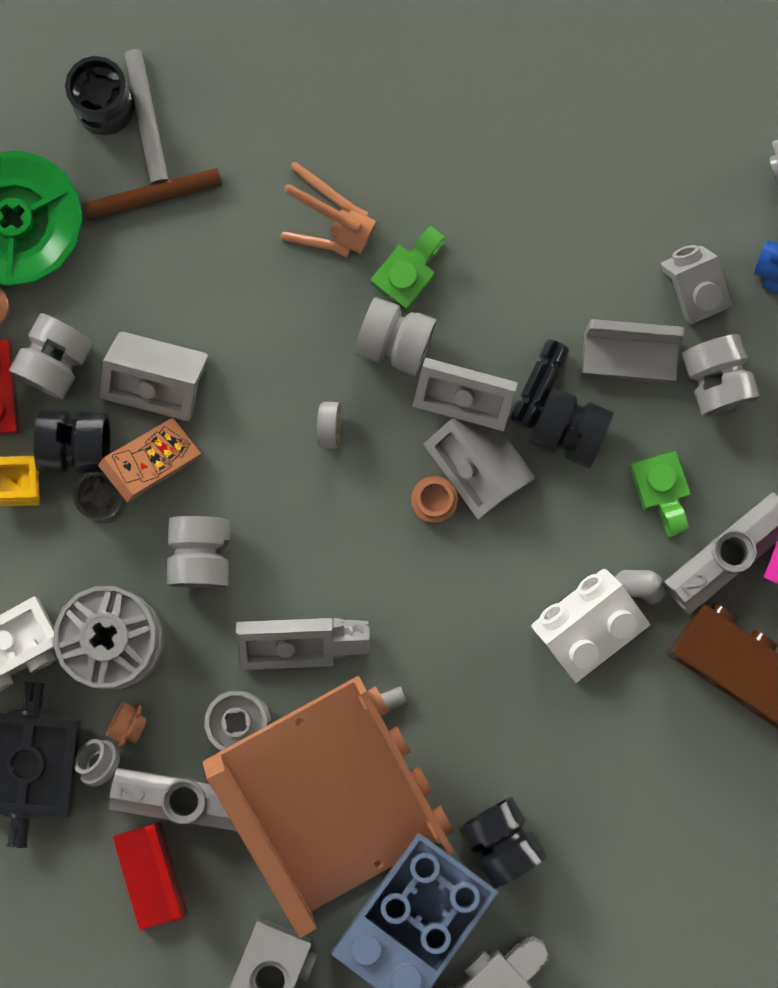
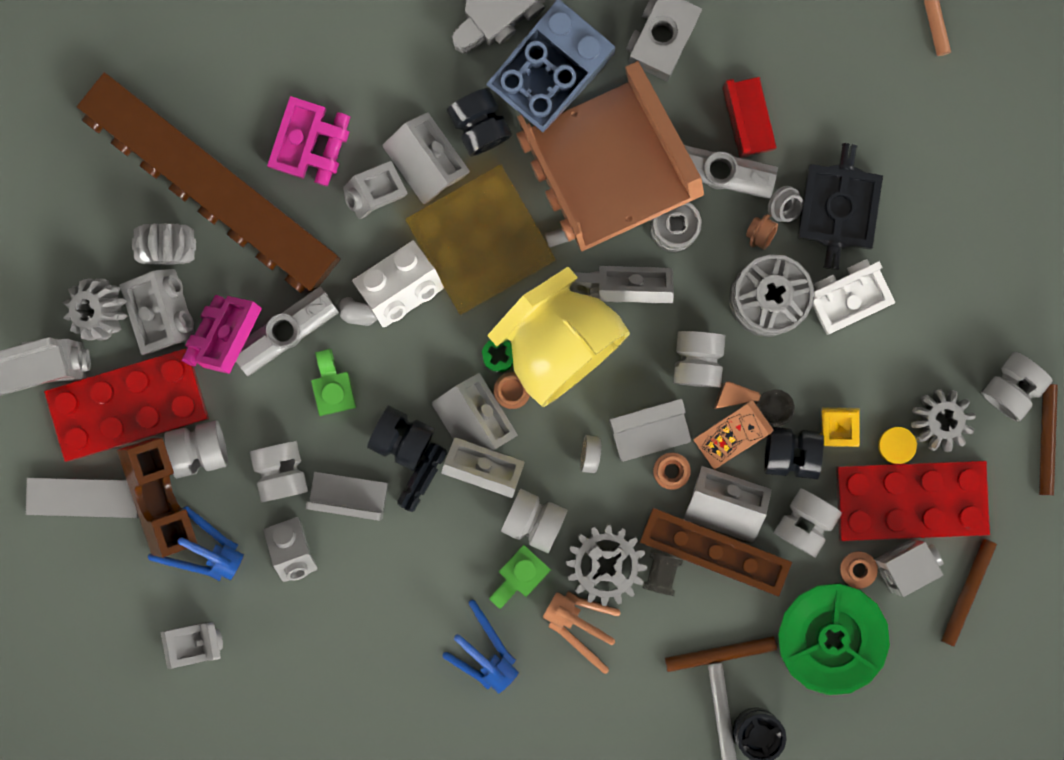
camera: 175 degrees left, 5 degrees up
(151, 509) = (734, 394): none -> nougat slope
(165, 315) = (715, 552): none -> reddish brown plate
(222, 398) = (683, 471): none -> nougat plate
(230, 283) = (662, 573): none -> clear smoke bush
(256, 462) = (650, 430): none -> light grey panel
(287, 274) = (620, 581): none -> light grey gear
(381, 563) = (558, 336): none -> light yellow plate
(430, 153) = (495, 671): none -> blue plant
(449, 528) = (501, 366): none -> green bush
(489, 690) = (480, 239): none -> clear yellow plate
(568, 792) = (425, 157): none -> light grey panel
(632, 744) = (373, 189): none -> light grey bracket
(736, 805) = (298, 137): none -> dark pink plate

